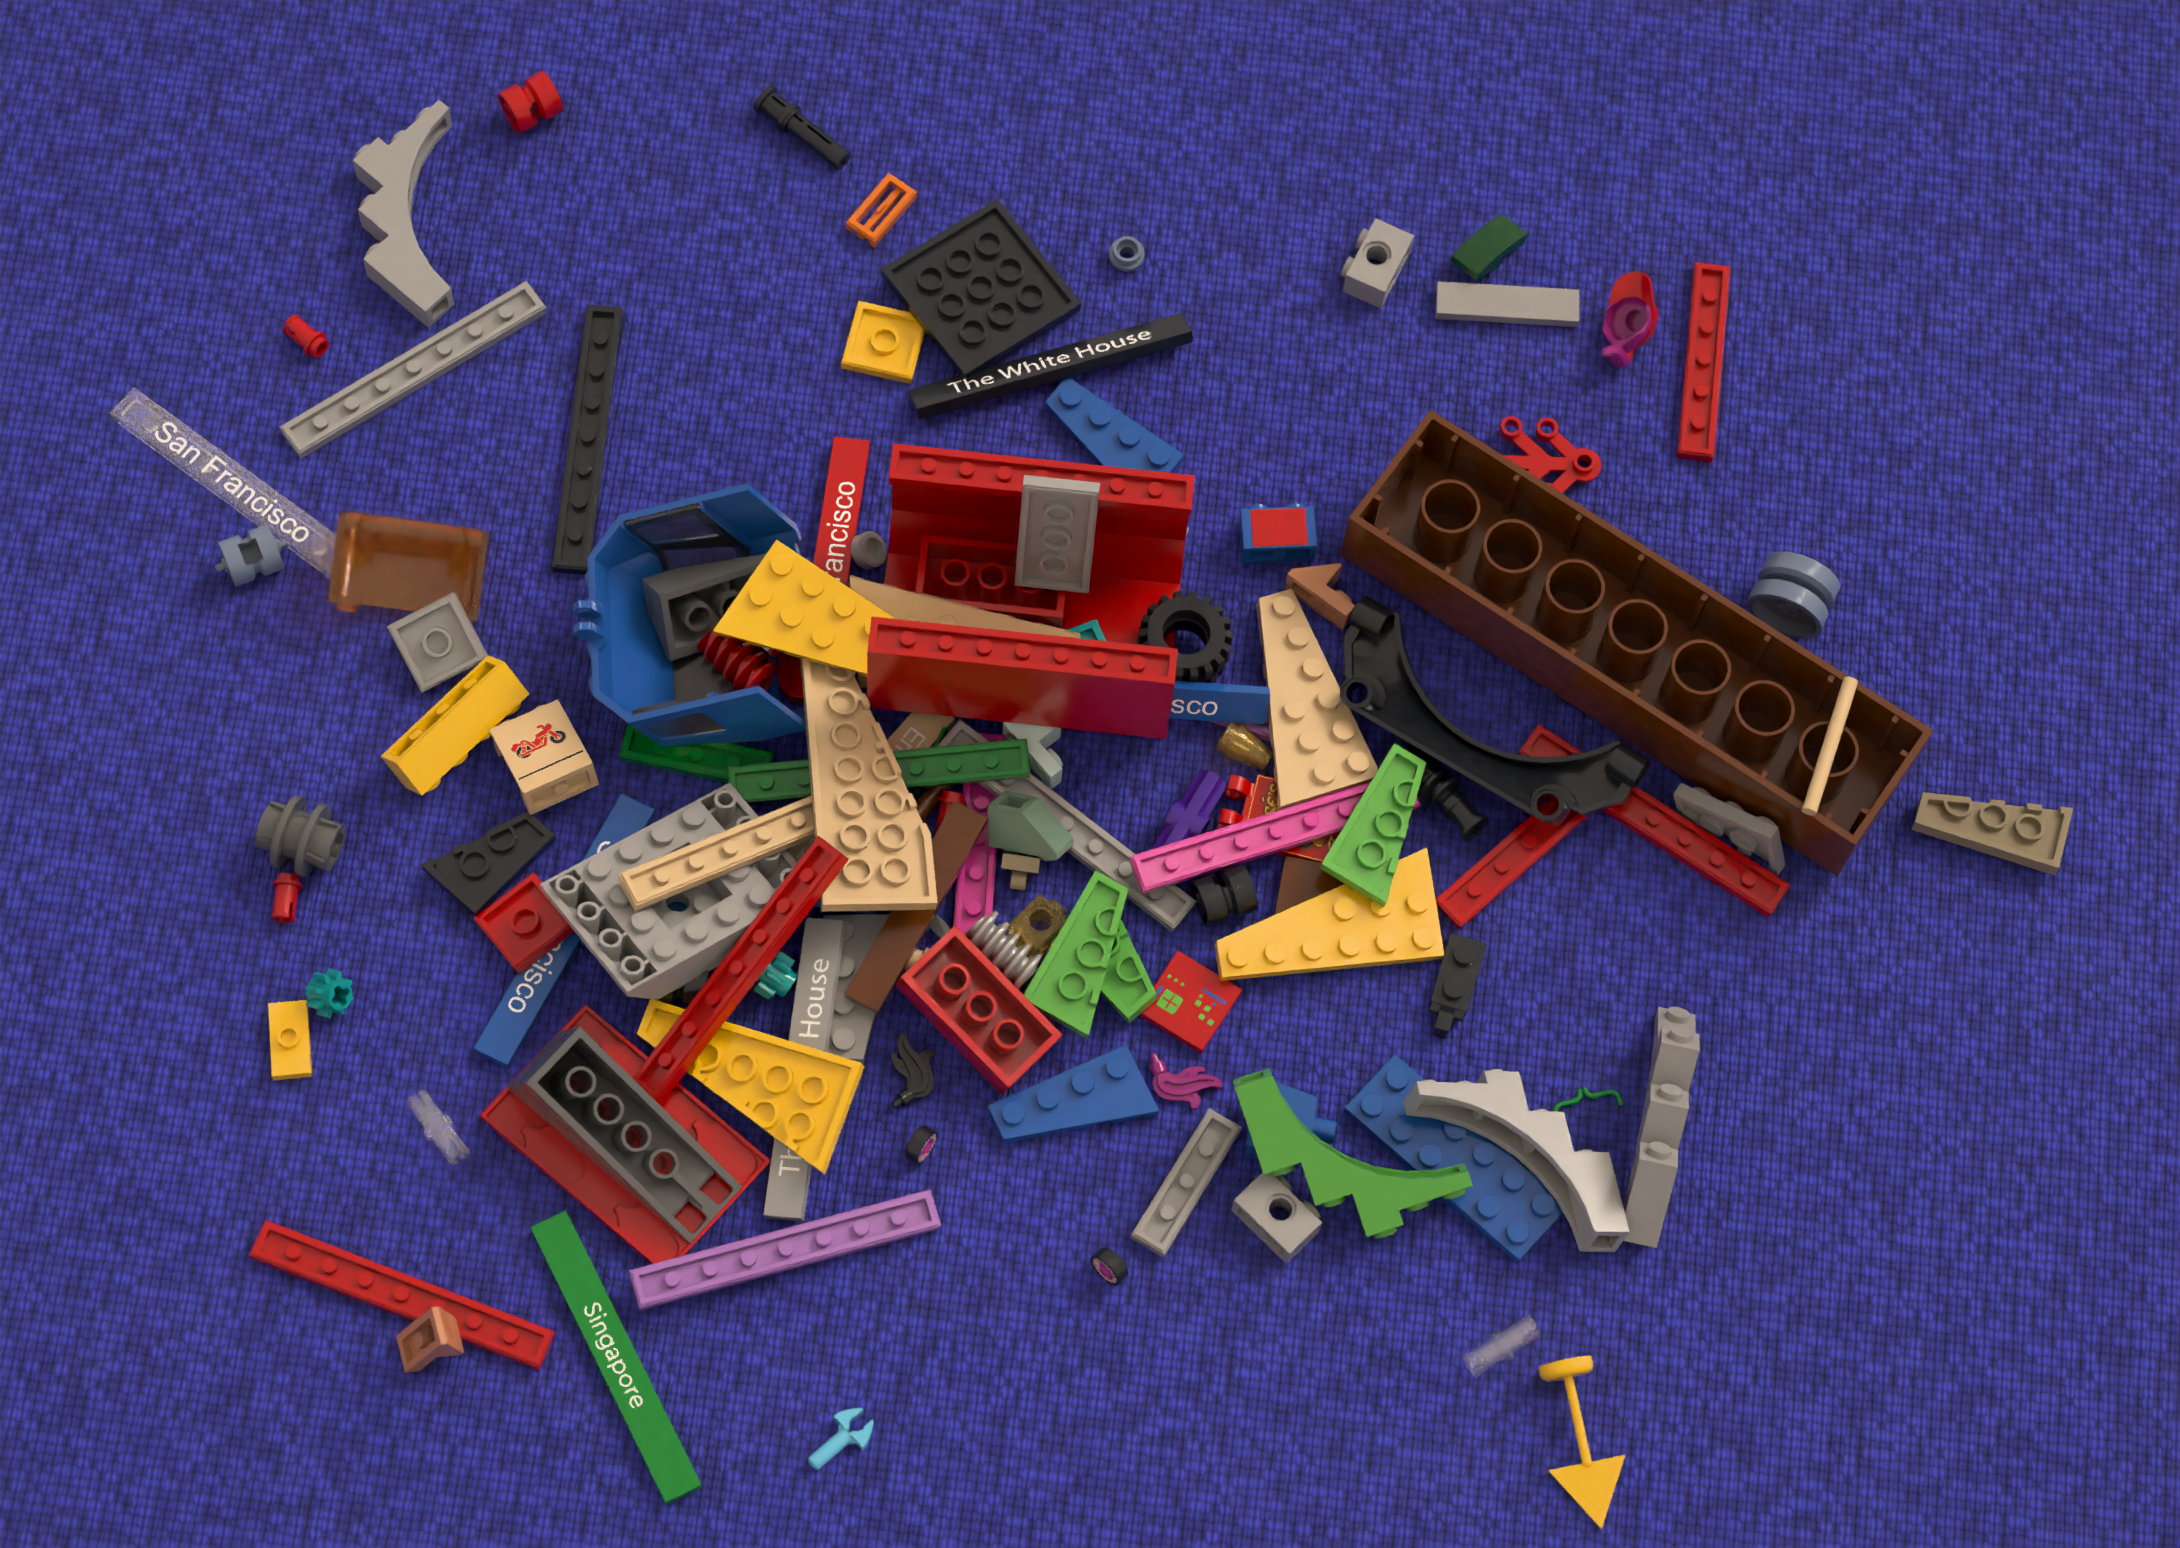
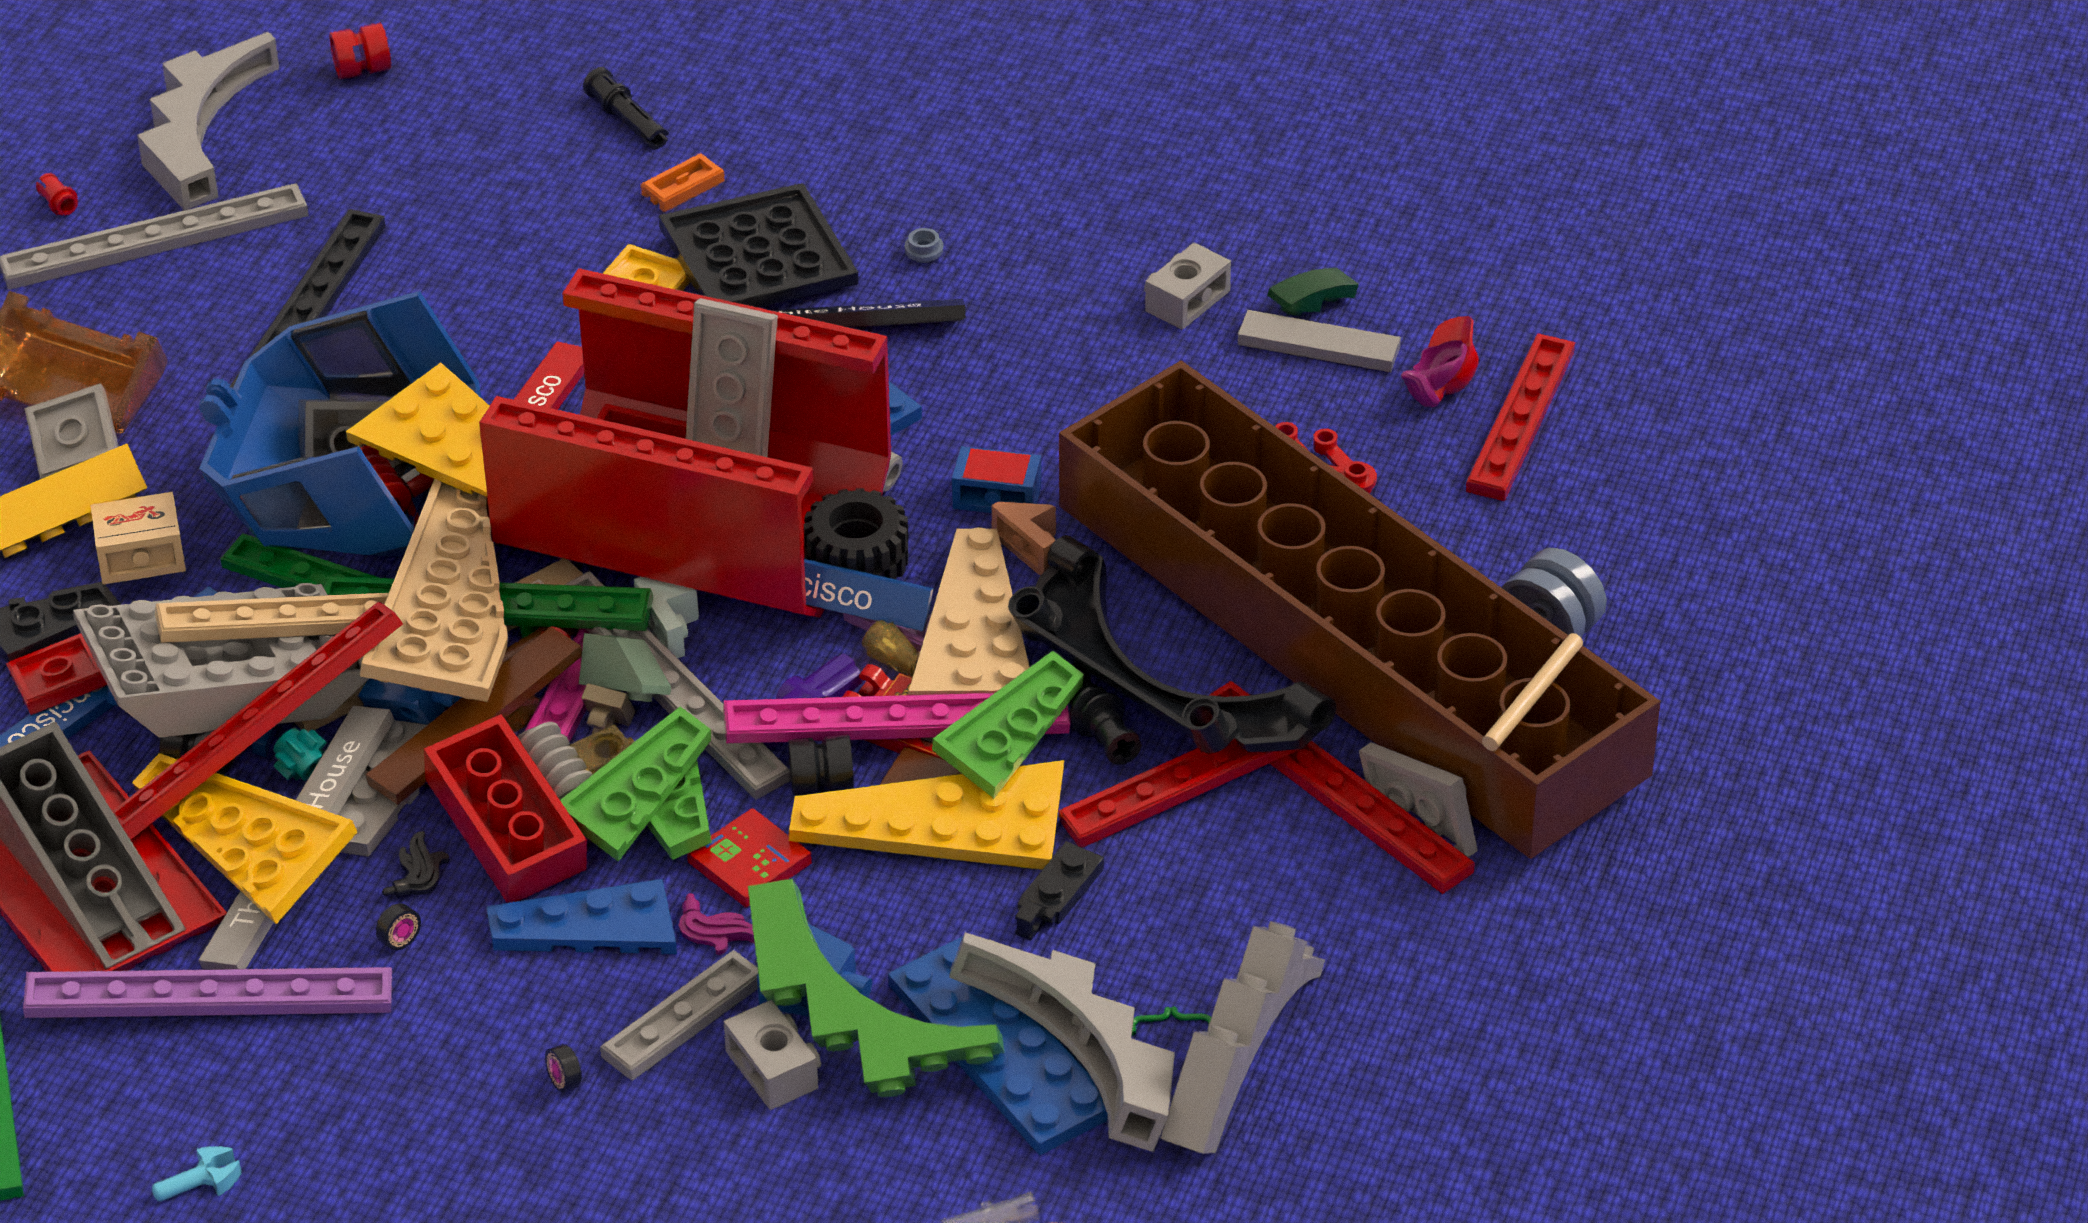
camera: 20 degrees right, 25 degrees down
(2010, 832) = (1730, 849): dark tan wing -> none

